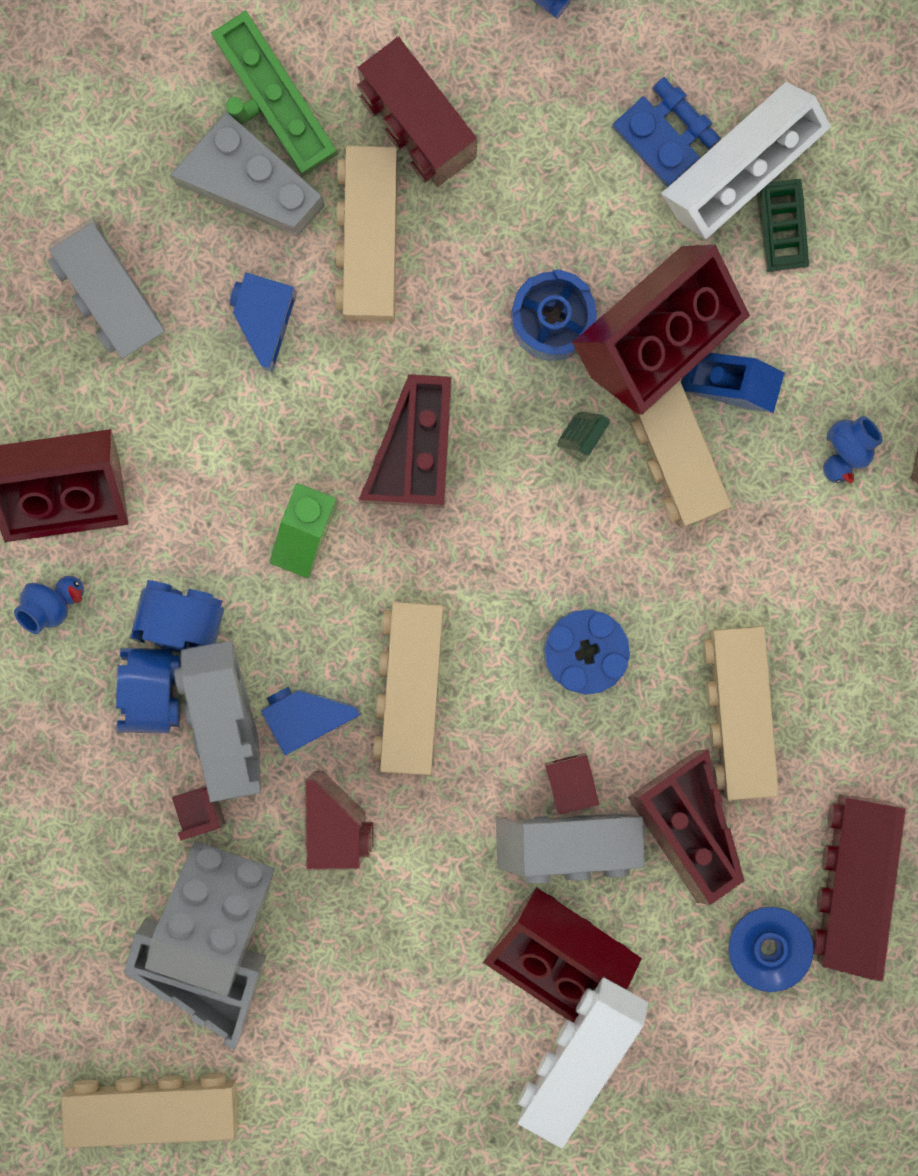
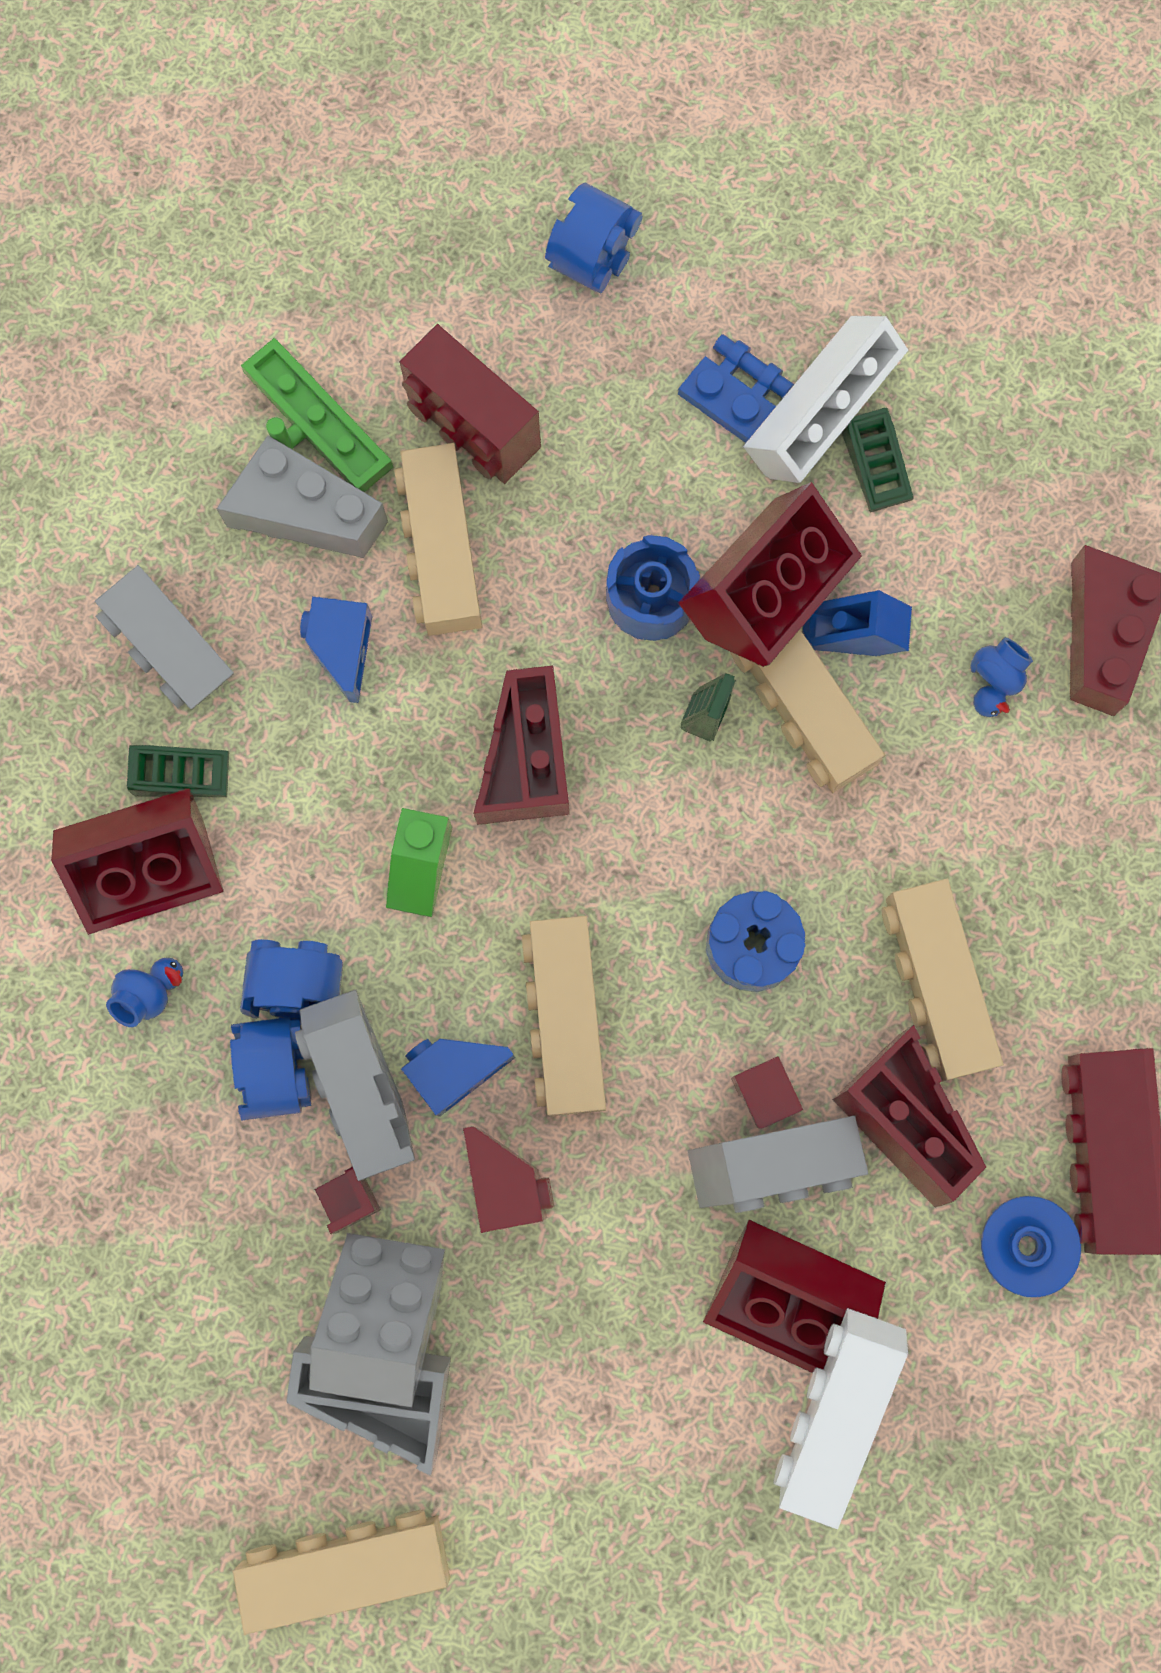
camera: 15 degrees left, 10 degrees down
(67, 400) = (160, 754): none -> dark green slope

